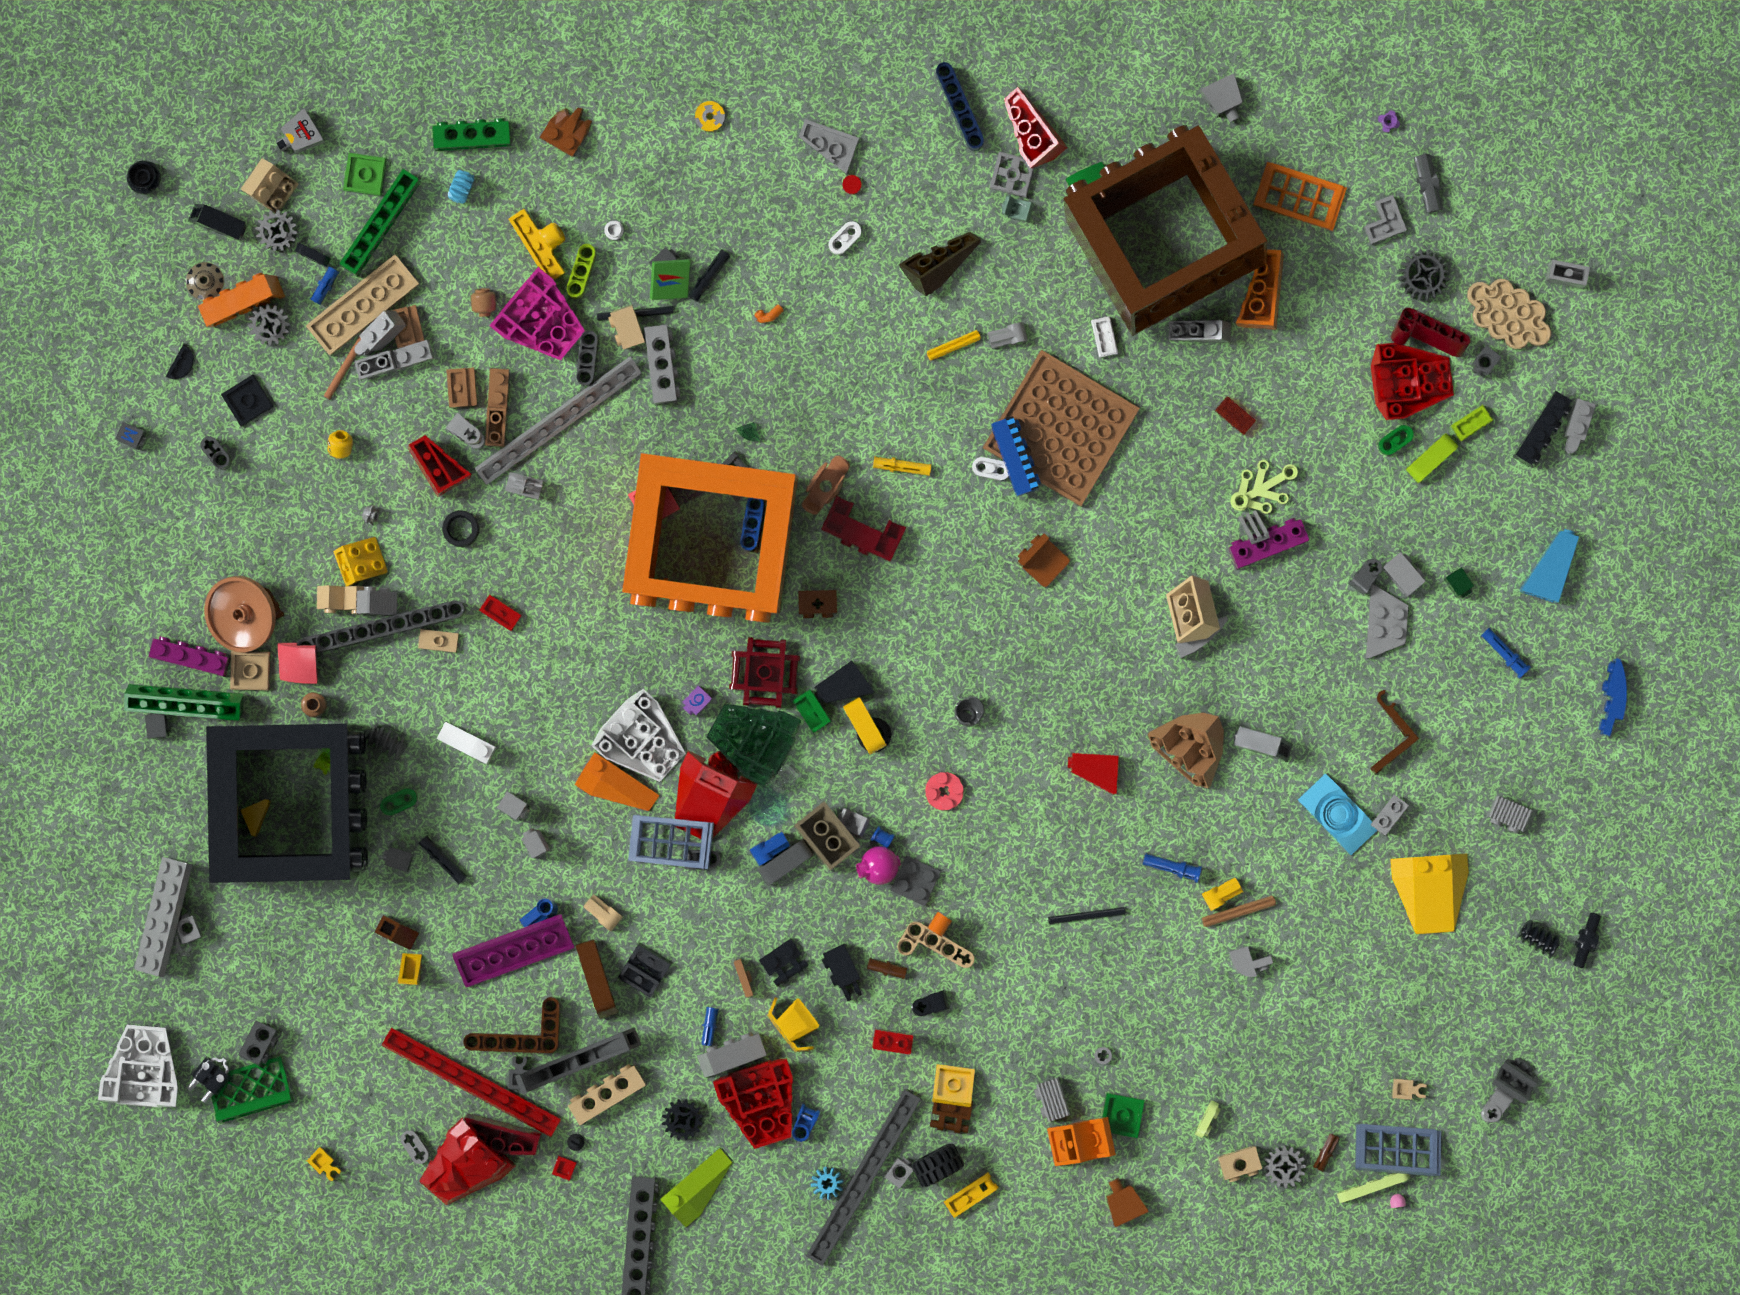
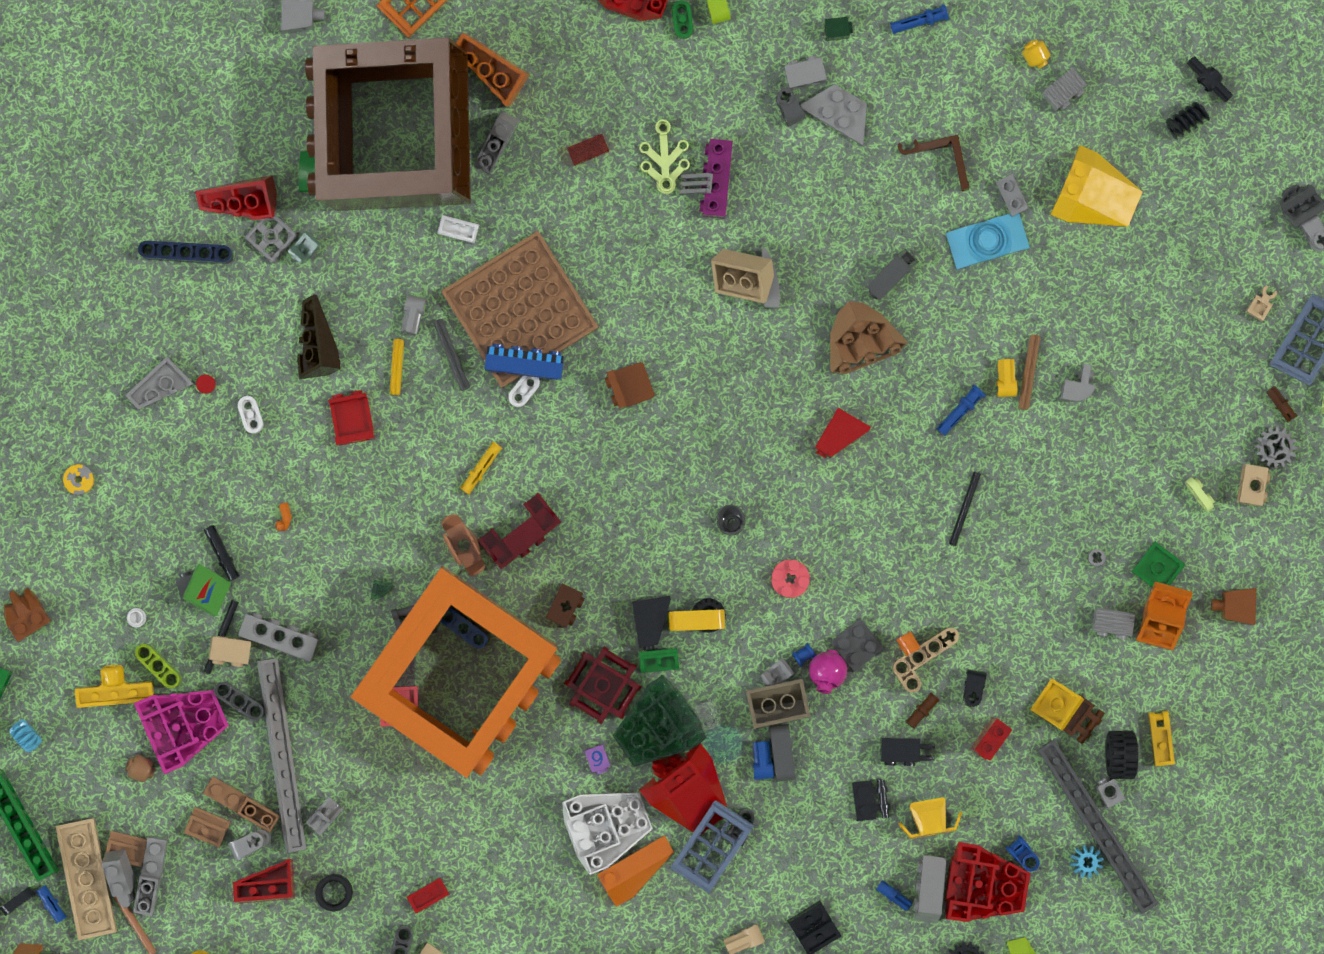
camera: 55 degrees left, 0 degrees up
(745, 978) = (866, 842): medium nougat plate -> none
(887, 329) = (351, 418): none -> red panel
(989, 388) = (451, 354): none -> dark grey axle
(1529, 772) = (1036, 53): none -> yellow head

